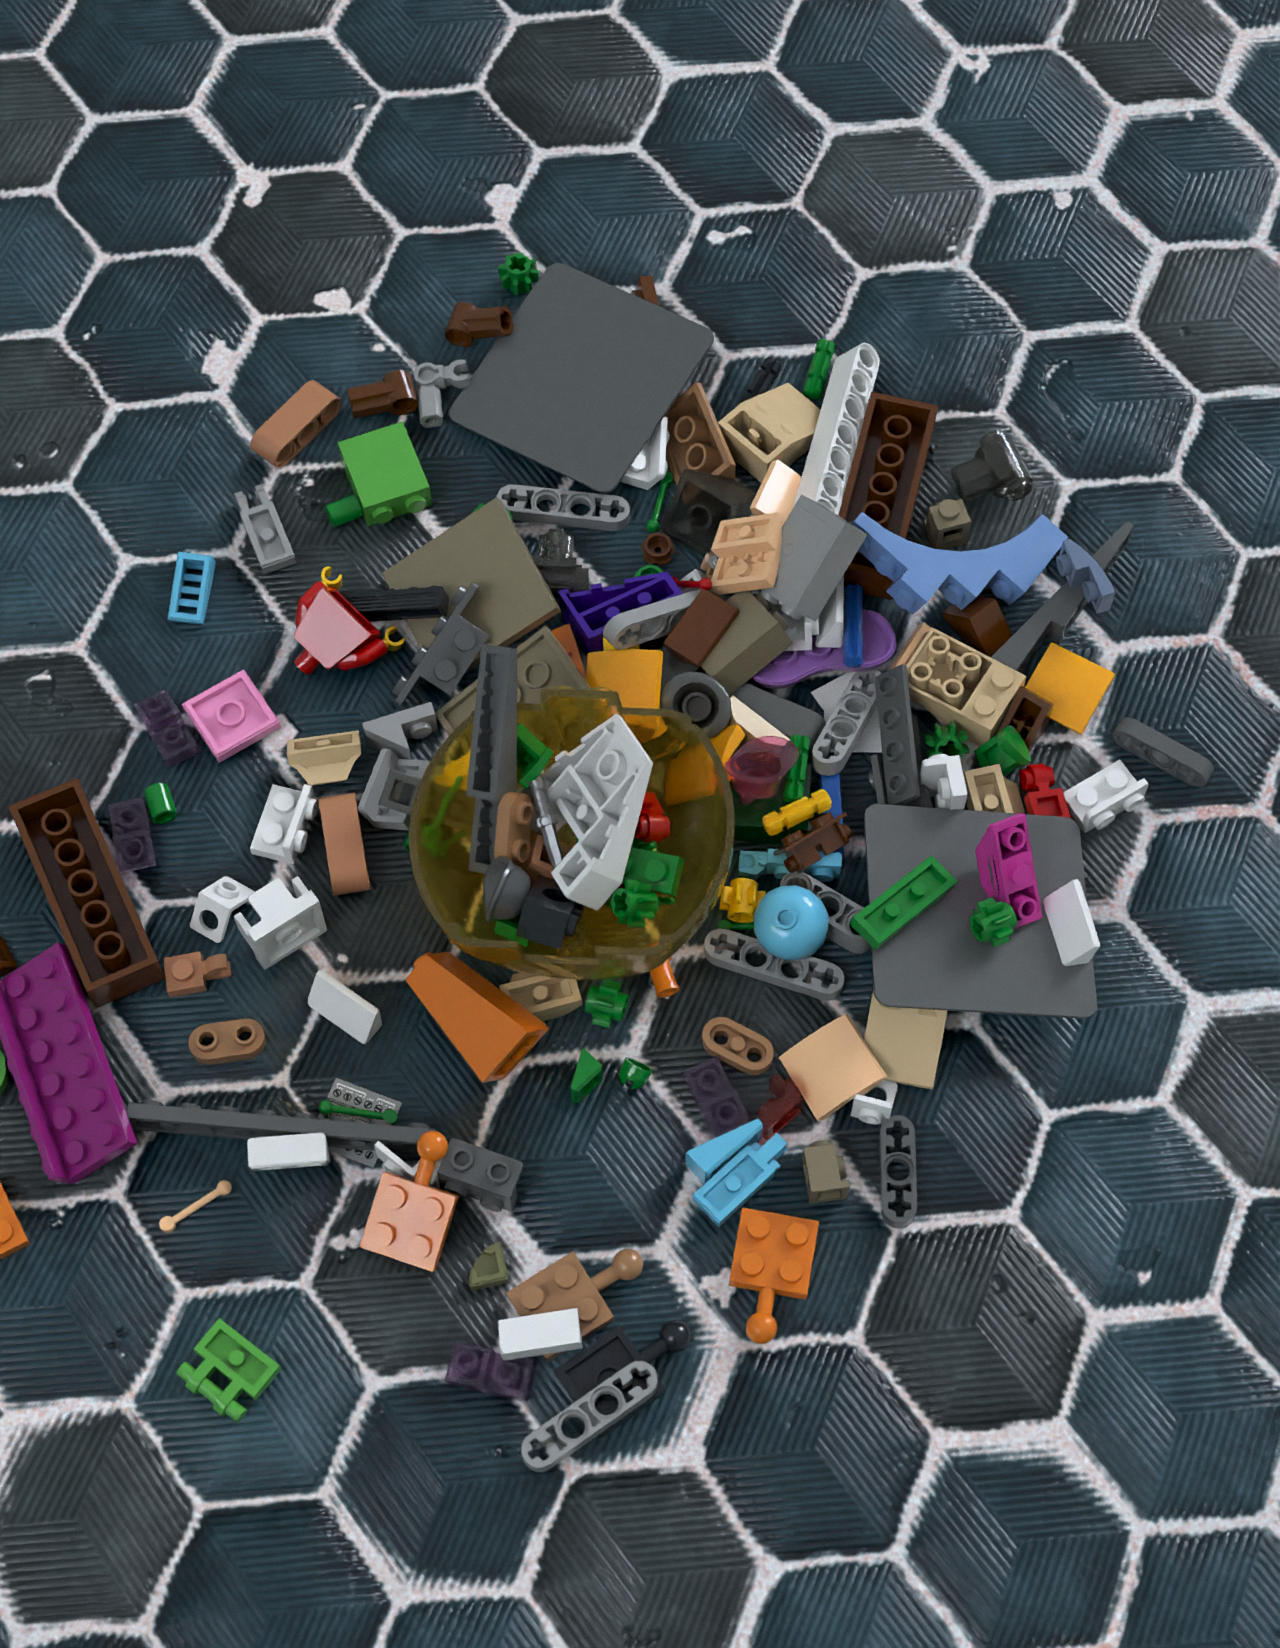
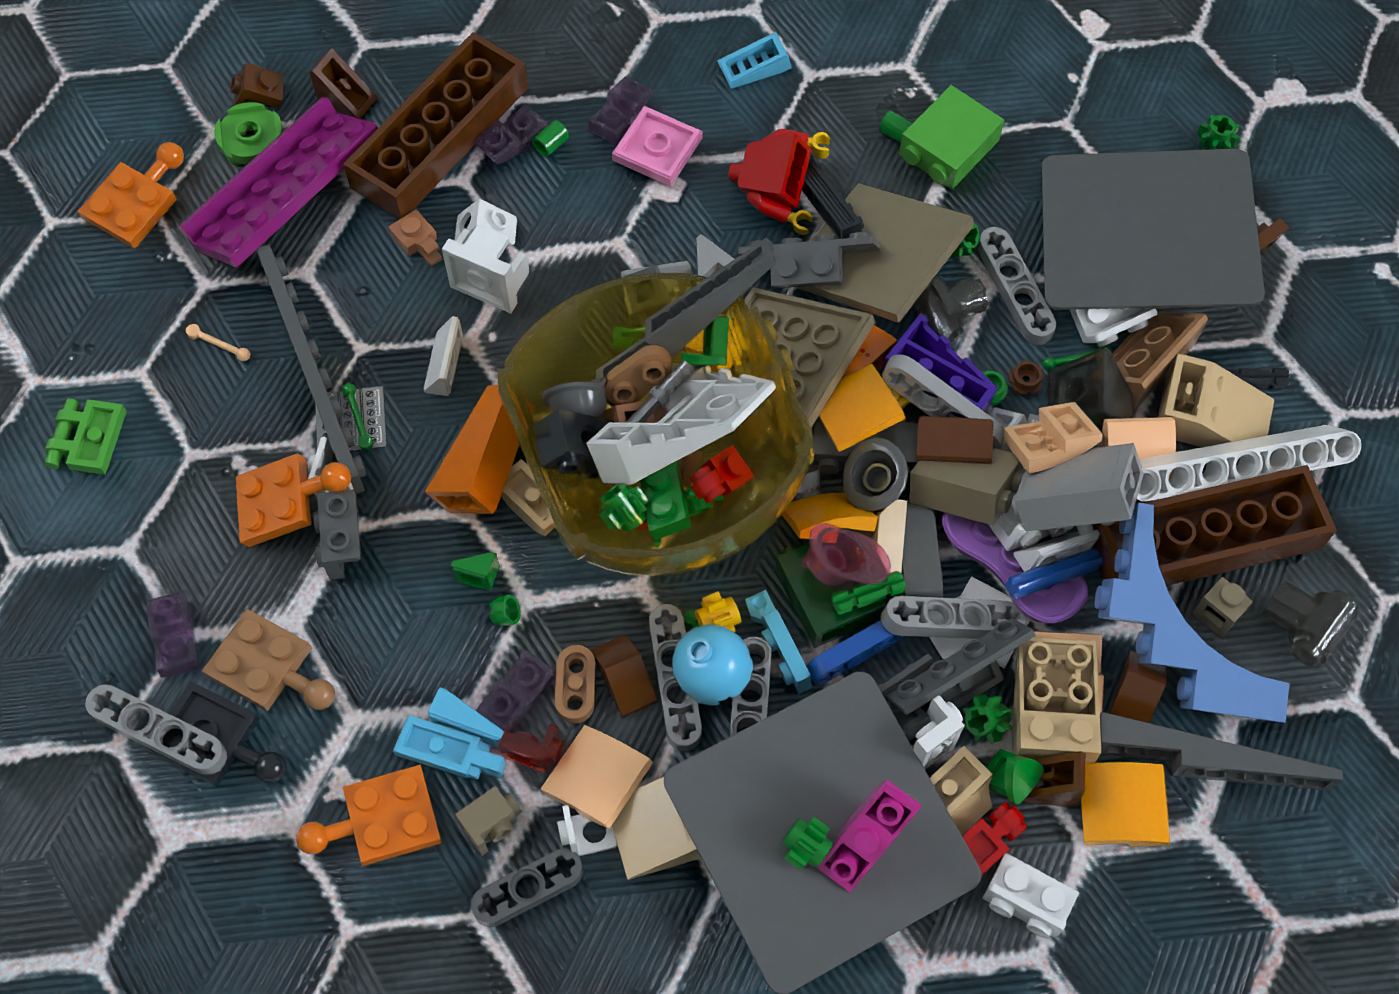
camera: 60 degrees right, 0 degrees up
(226, 1043) = (368, 289): medium nougat plate -> none
(265, 532) = (840, 83): light grey hinge -> none
(284, 823) = (585, 232): white bracket -> none
(288, 1151) = (286, 379): white slope -> none
(295, 424) = (953, 53): nougat beam -> none
(324, 757) = (655, 224): tan slope -> none
(344, 844) = (595, 269): nougat beam -> none
(392, 394) = (1030, 105): reddish brown piece -> none
(430, 381) = (1064, 126): light grey bar -> none
(471, 322) = (1143, 127): reddish brown piece -> none
(489, 1268) = (267, 586): olive tile -> none
(540, 1334) = (213, 651): white slope -> none
(606, 1003) = (551, 555): green gear -> none
(664, 980) = (610, 588): orange pin -> none
(704, 583) = (1001, 420): red hinge -> none
(749, 1001) = (625, 675): none -> reddish brown slope
(796, 812) = (824, 614): yellow axle -> none
(801, 847) = (789, 635): reddish brown hinge -> none
(819, 369) = (1309, 417): green axle -> none
(903, 902) = (777, 748): green plate -> none
(1071, 924) = (856, 923): white slope -> none
(1085, 571) = (1249, 752): sand blue slope -> none
(1163, 752) = (1114, 933): dark grey beam -> none

